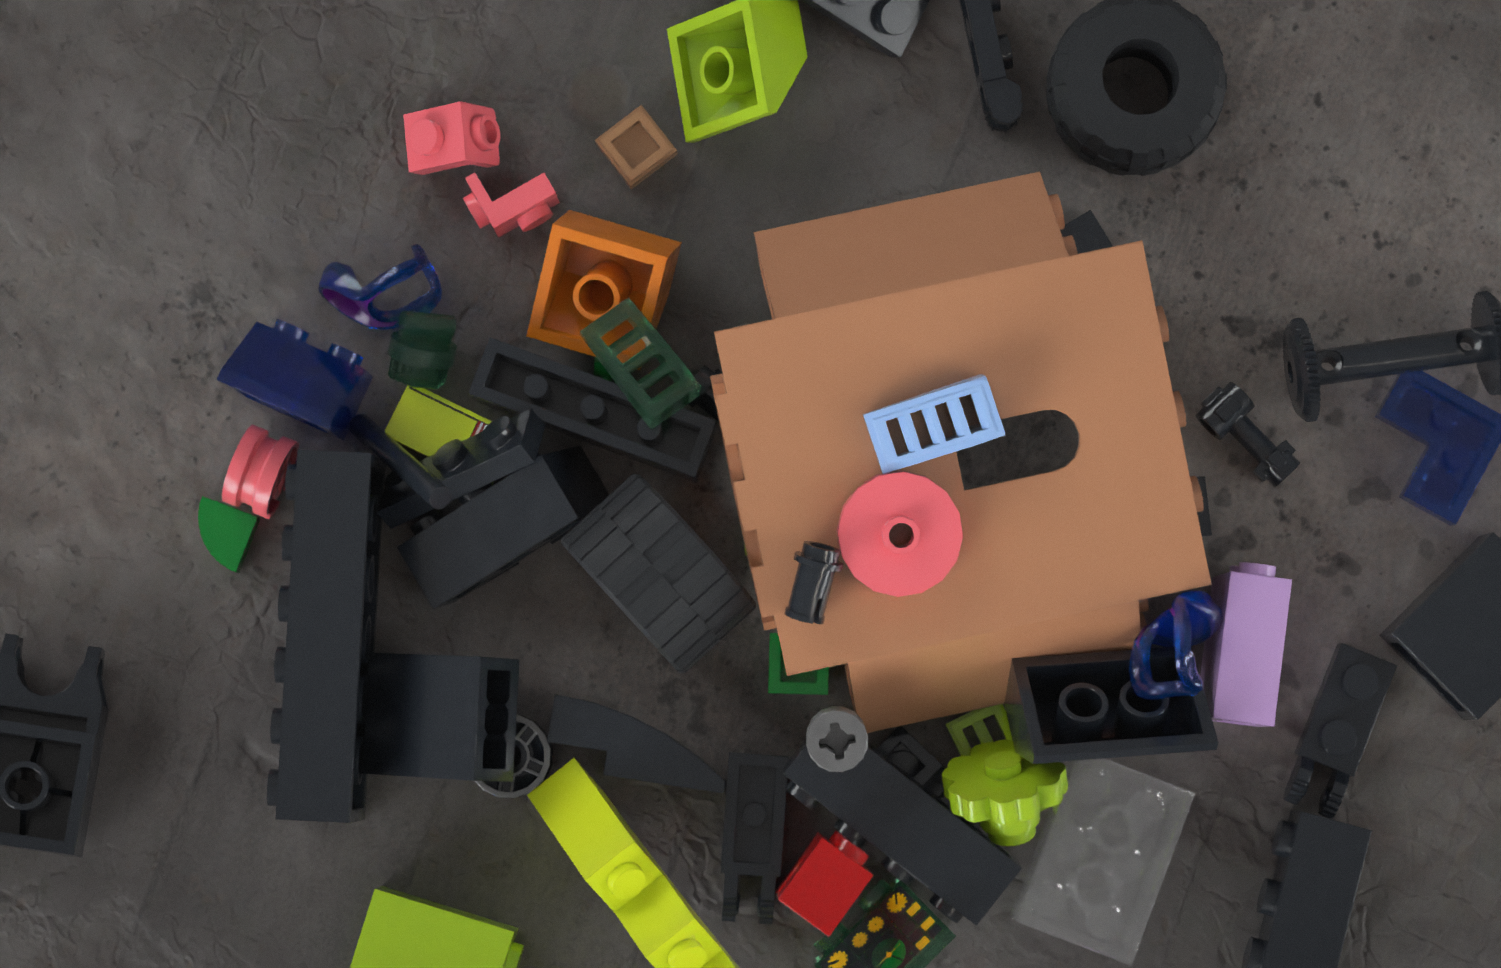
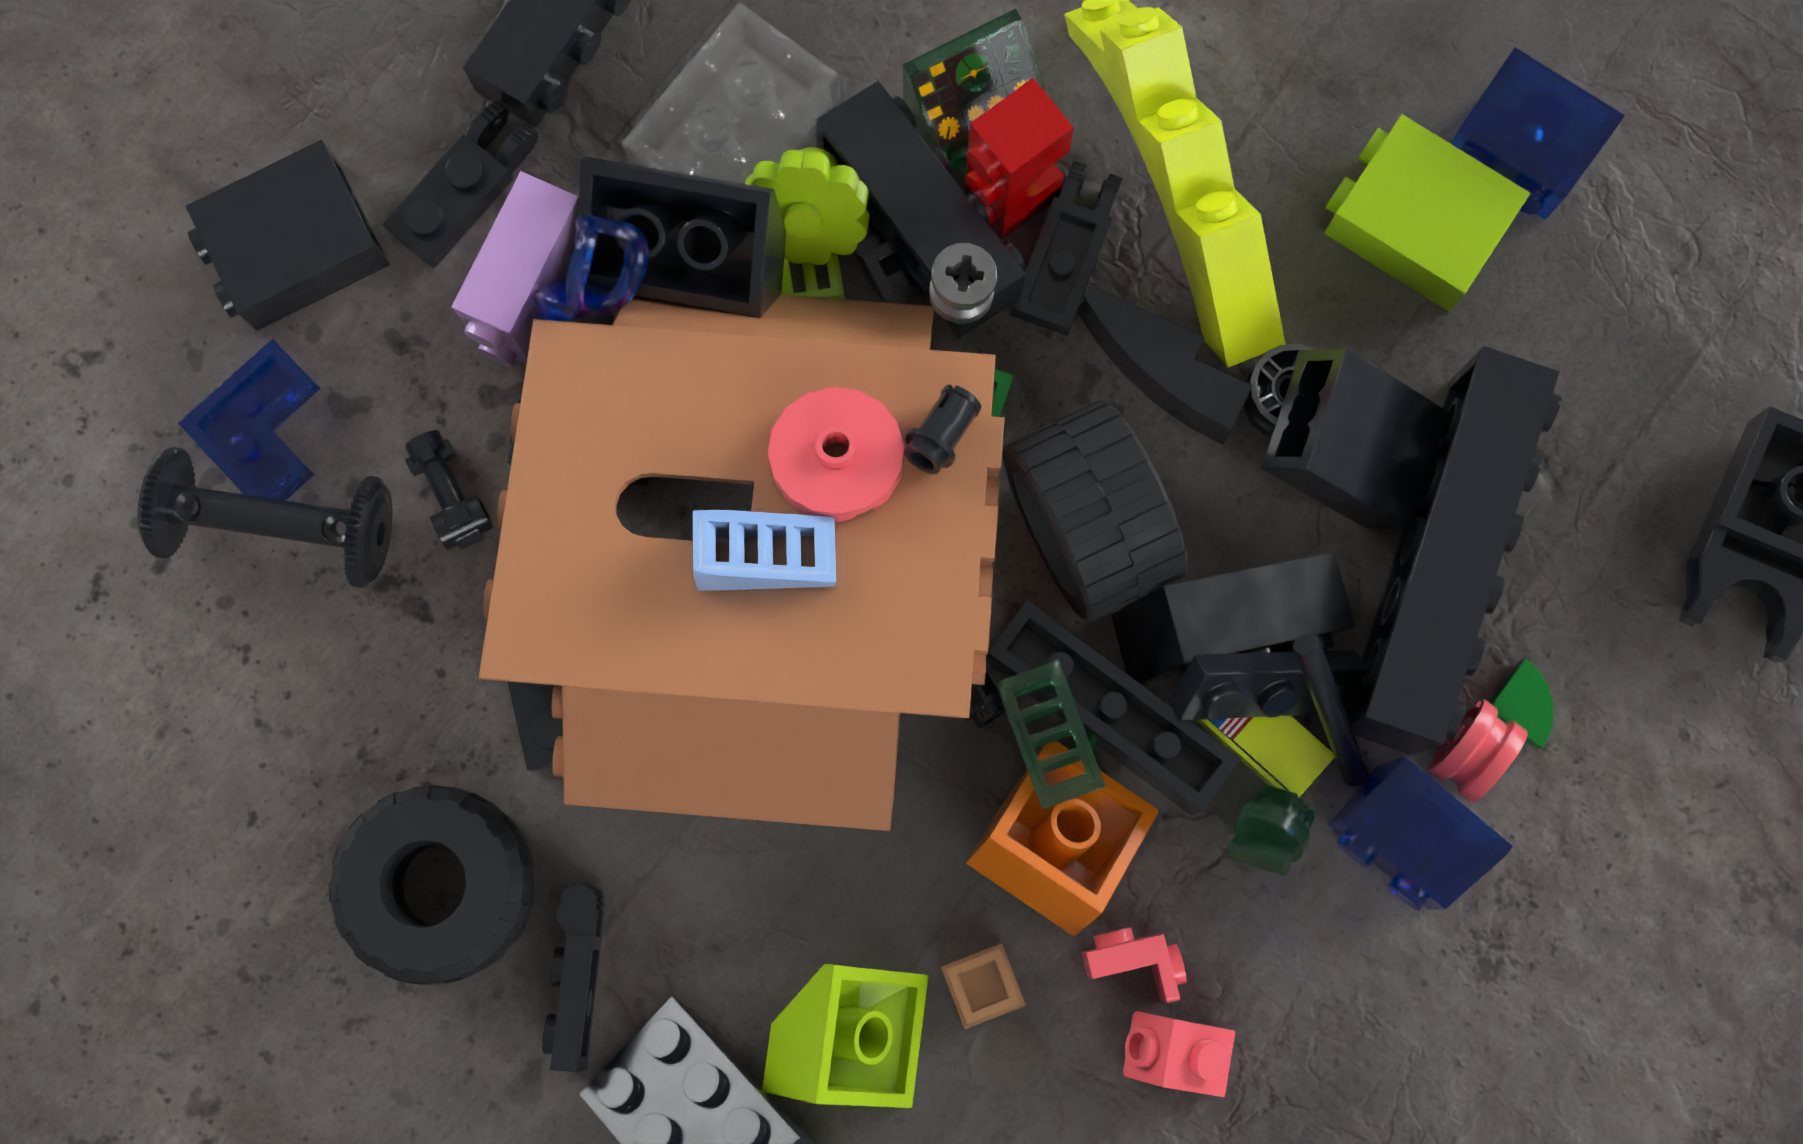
camera: 160 degrees left, 5 degrees down
(345, 293) = (1334, 919): clear blue piece -> none

